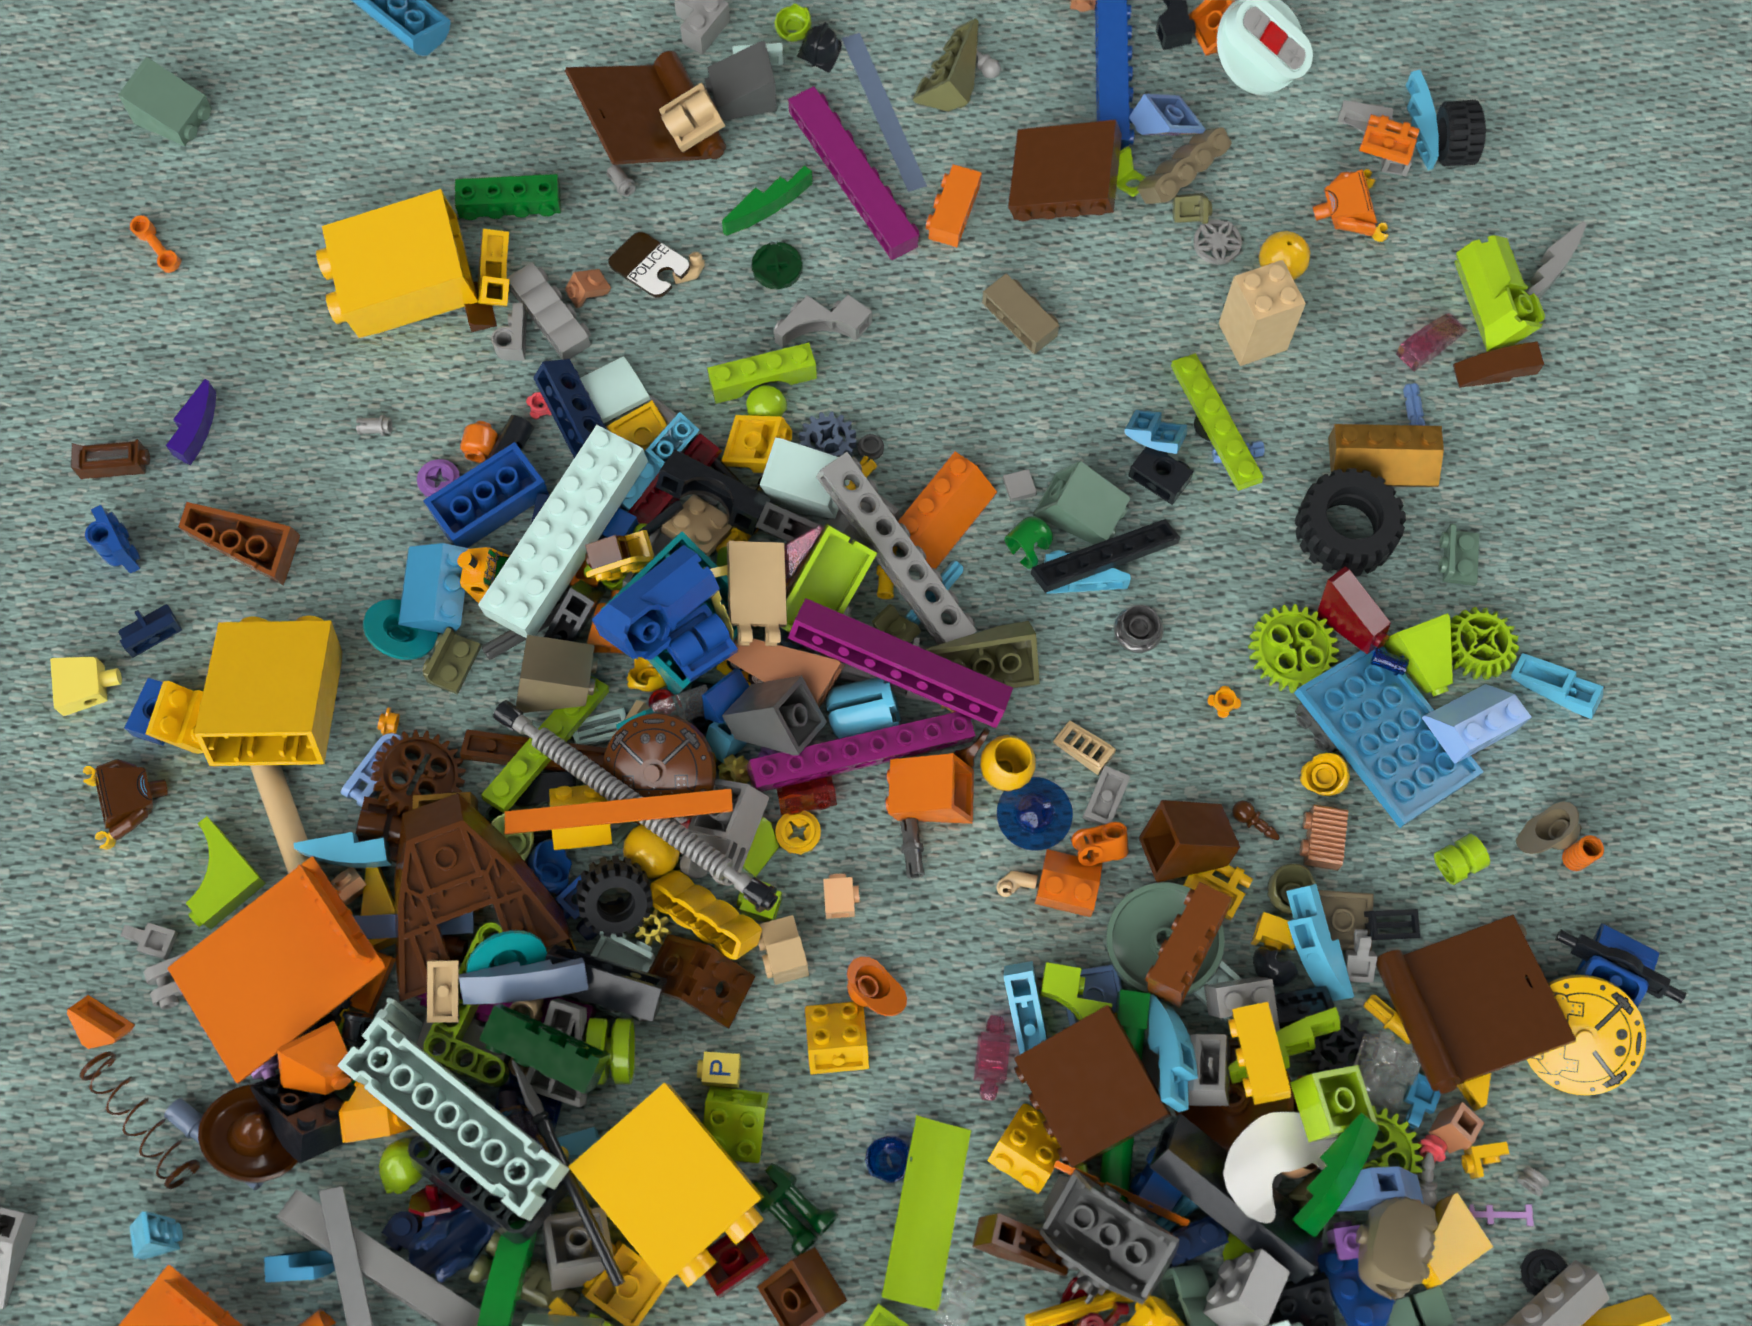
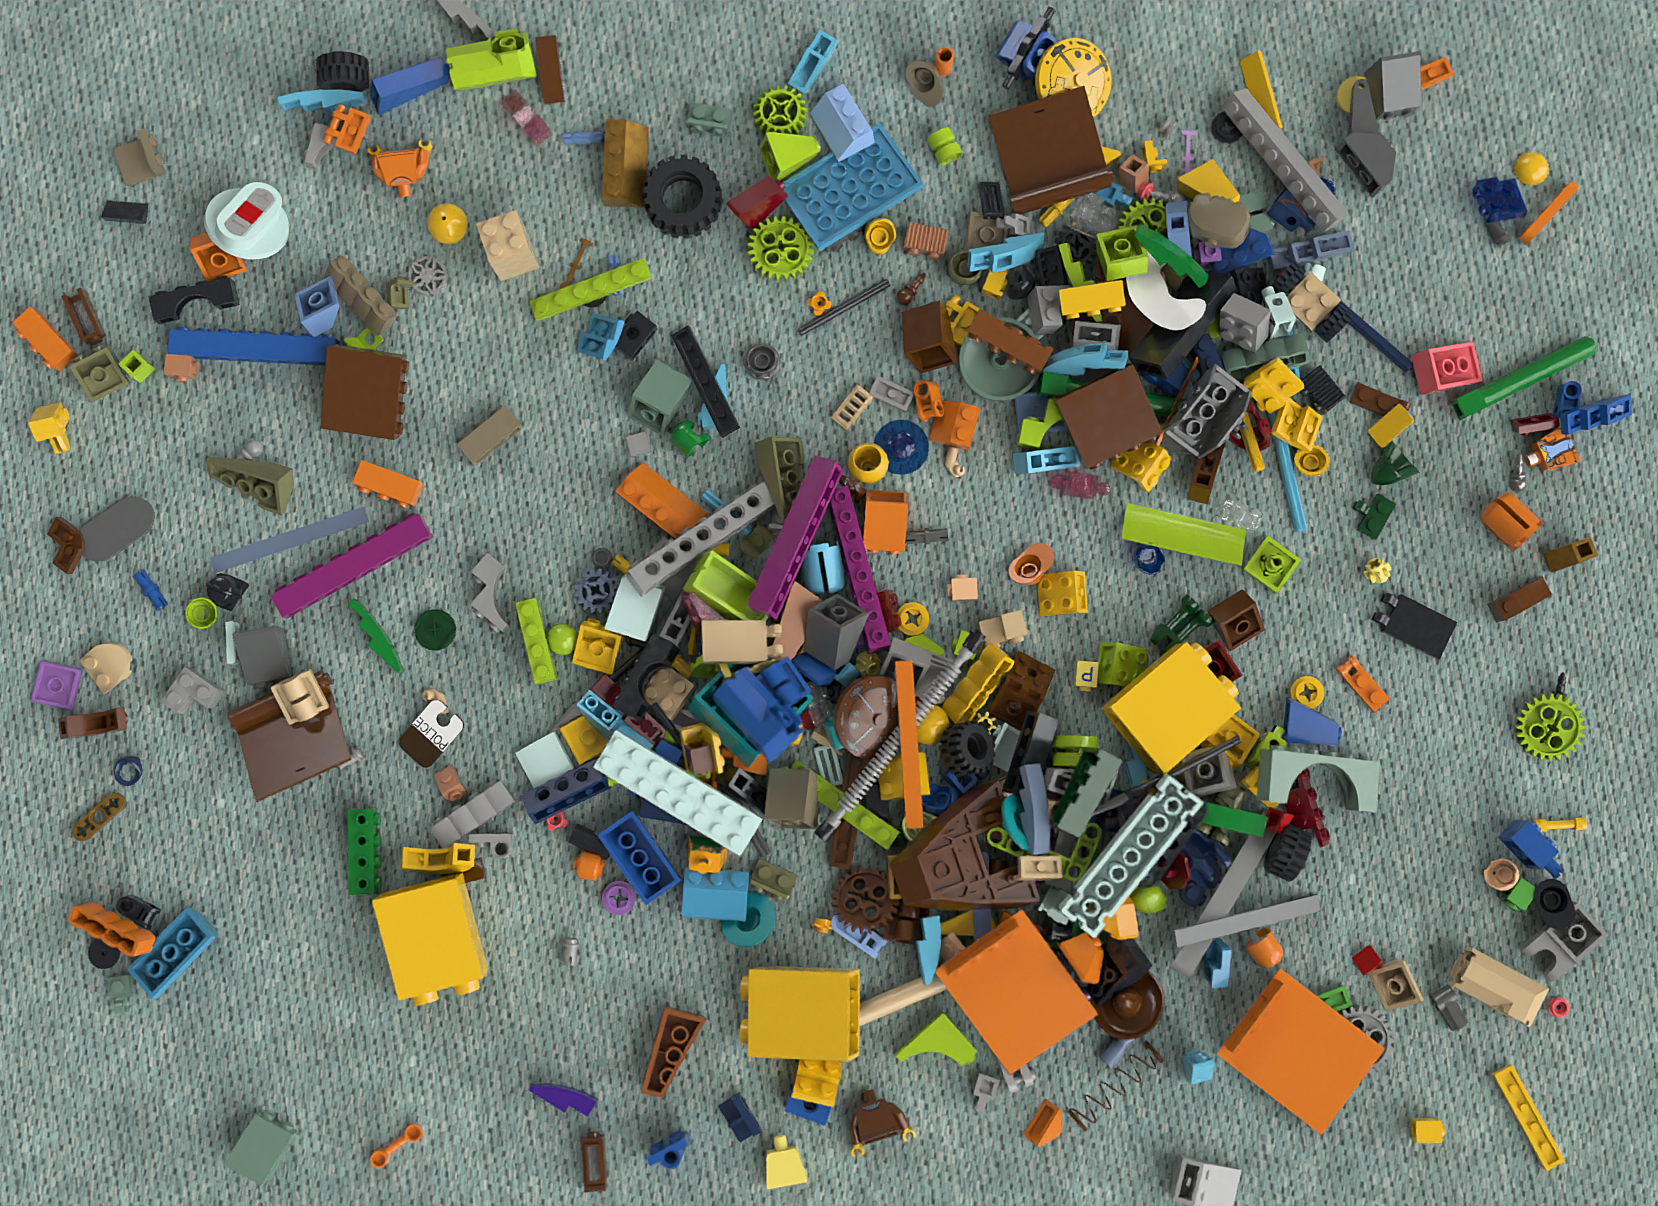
camera: 90 degrees left, 15 degrees up
(1222, 734) = (844, 307): none -> black piece
(1247, 406) = (575, 265): none -> pearl gold piece
(1389, 661) = (796, 179): clear blue pin -> none
(1454, 203) = (407, 84): none -> blue slope

